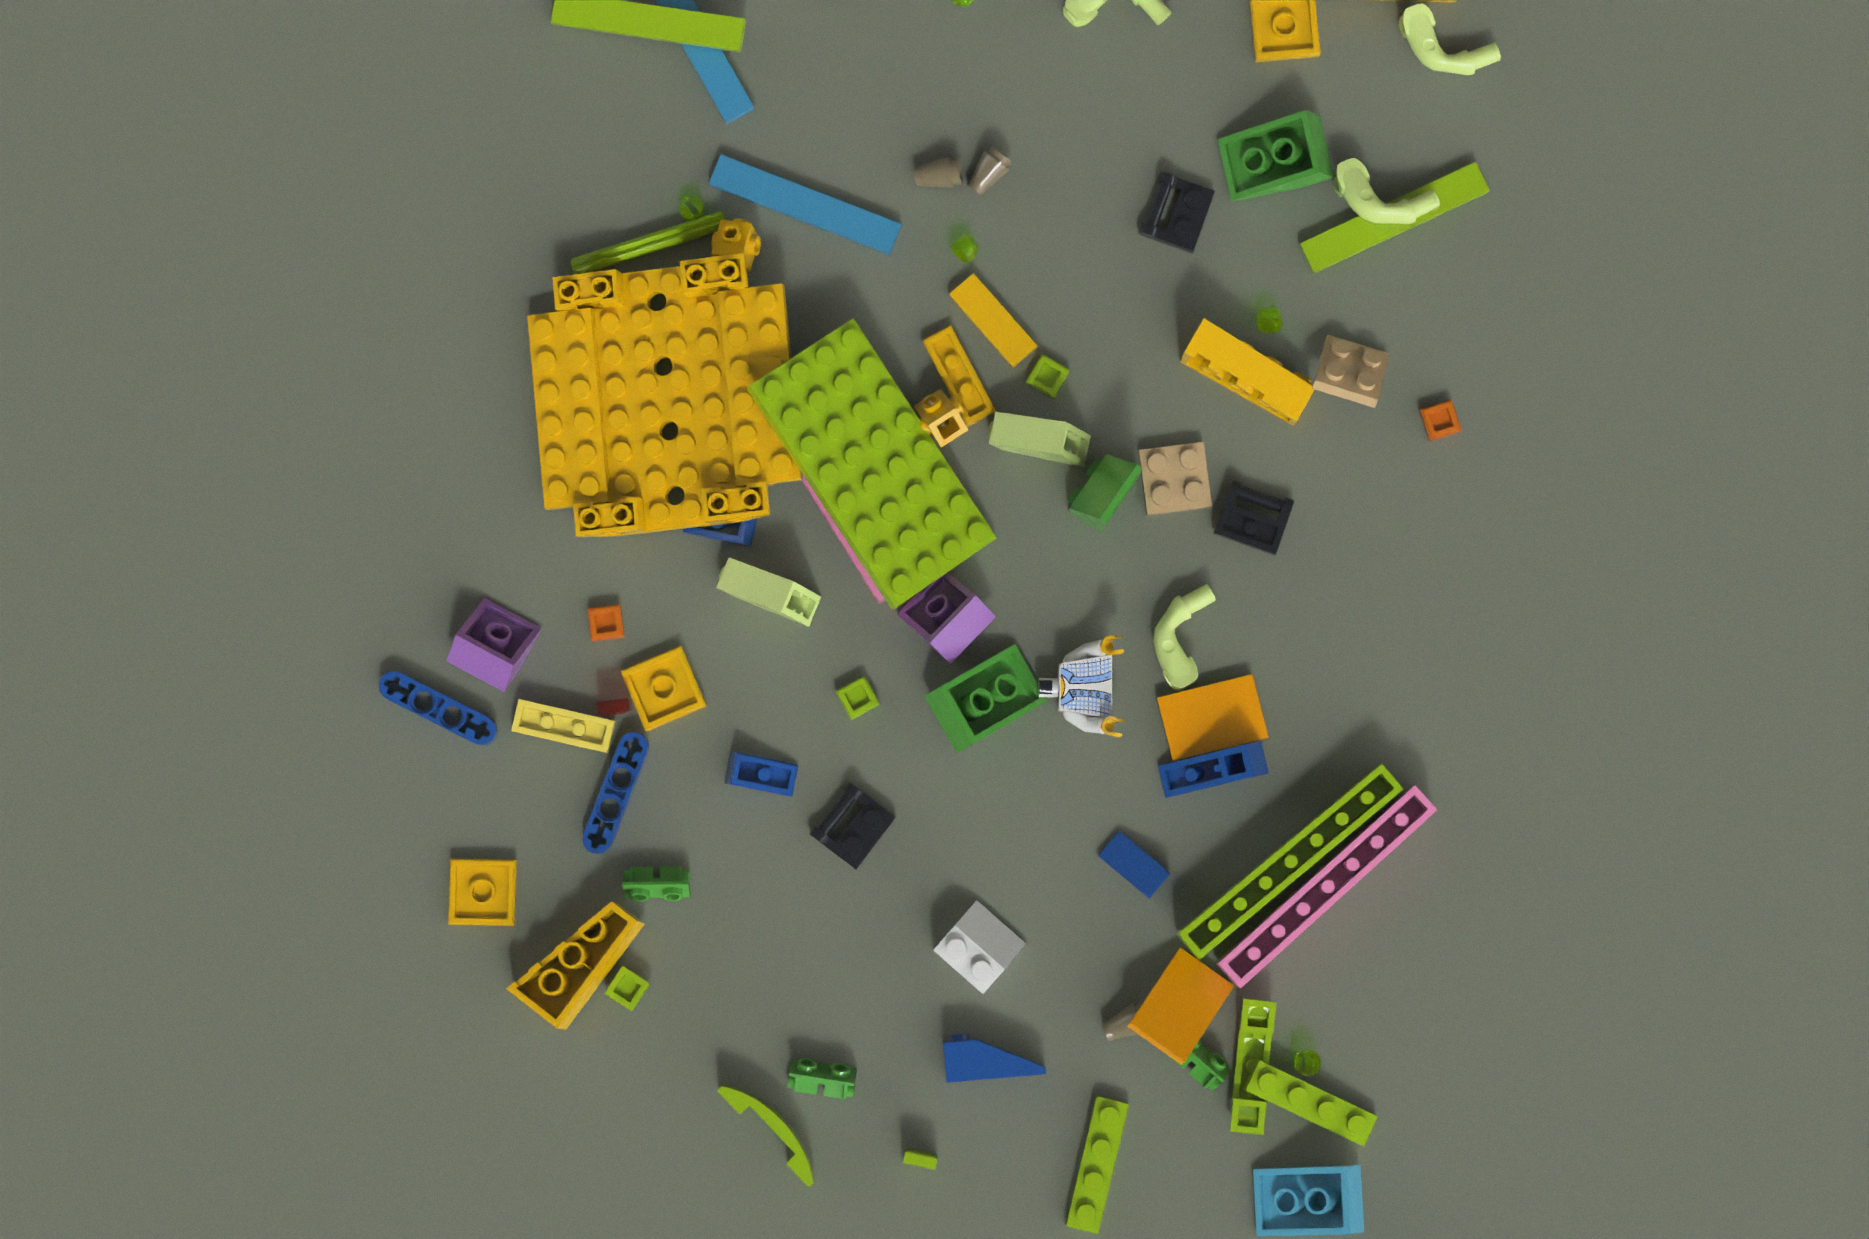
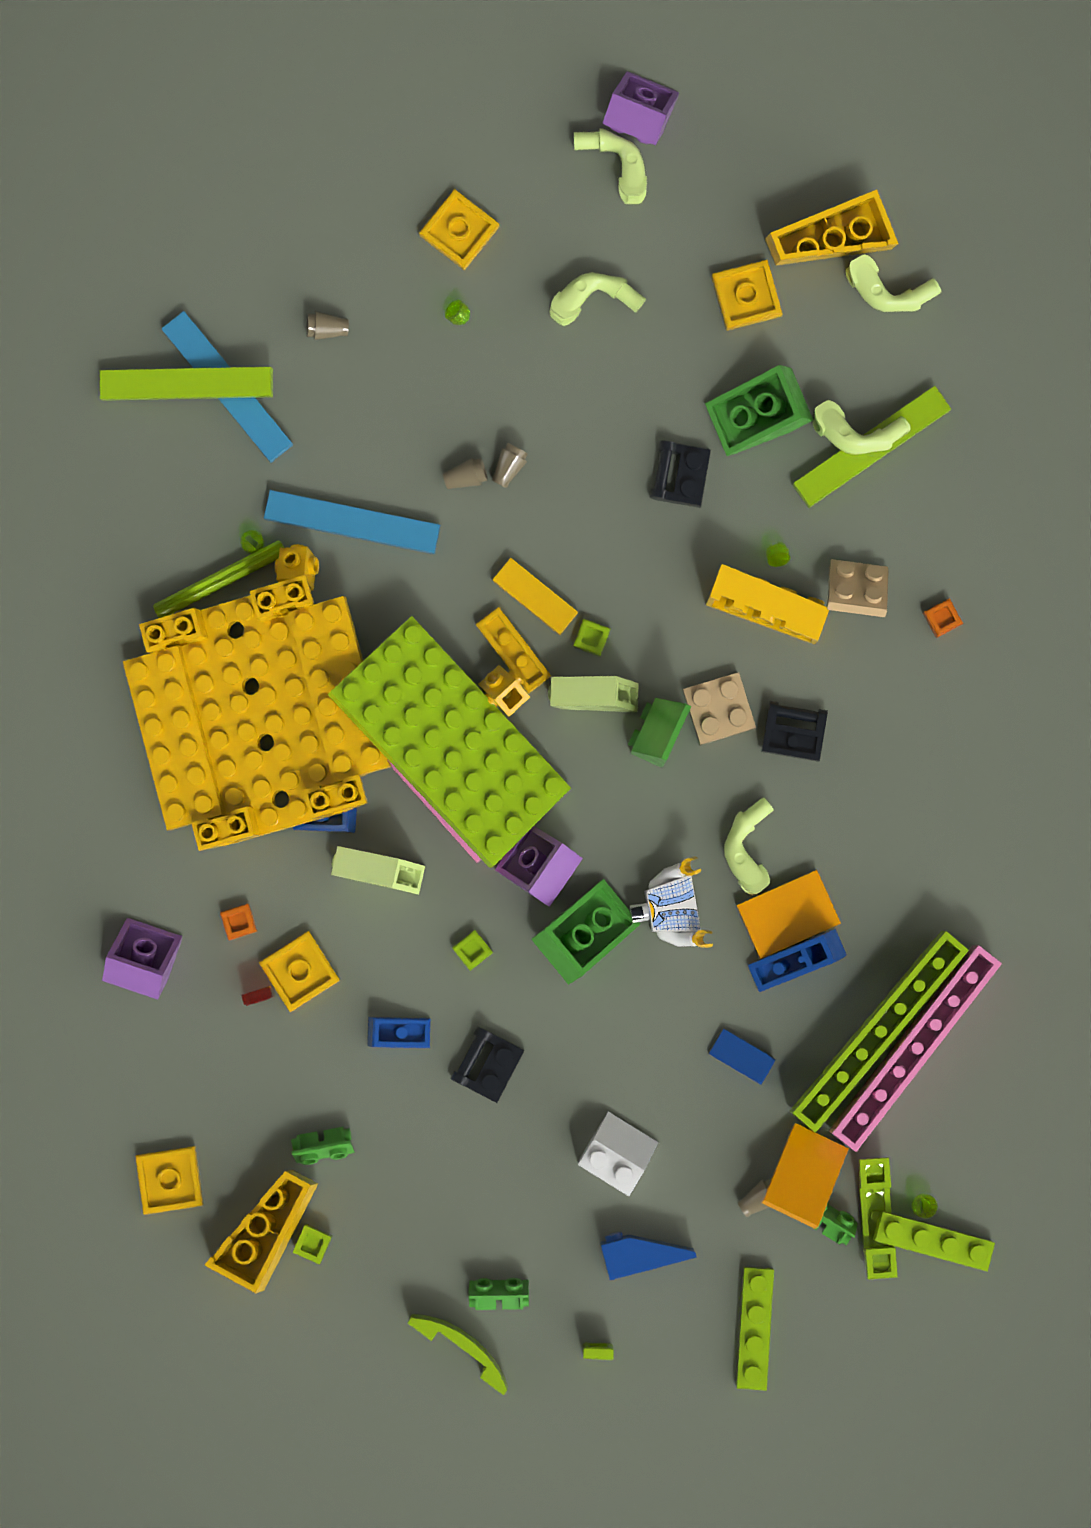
camera: 15 degrees left, 0 degrees up
(439, 706) = (103, 1019): blue beam -> none
(563, 726) = (216, 1020): light yellow plate -> none
(619, 794) = (268, 1070): blue beam -> none
(965, 248) = (500, 537): clear neon green hinge -> none
(1308, 1200) = (947, 1328): medium azure slope -> none

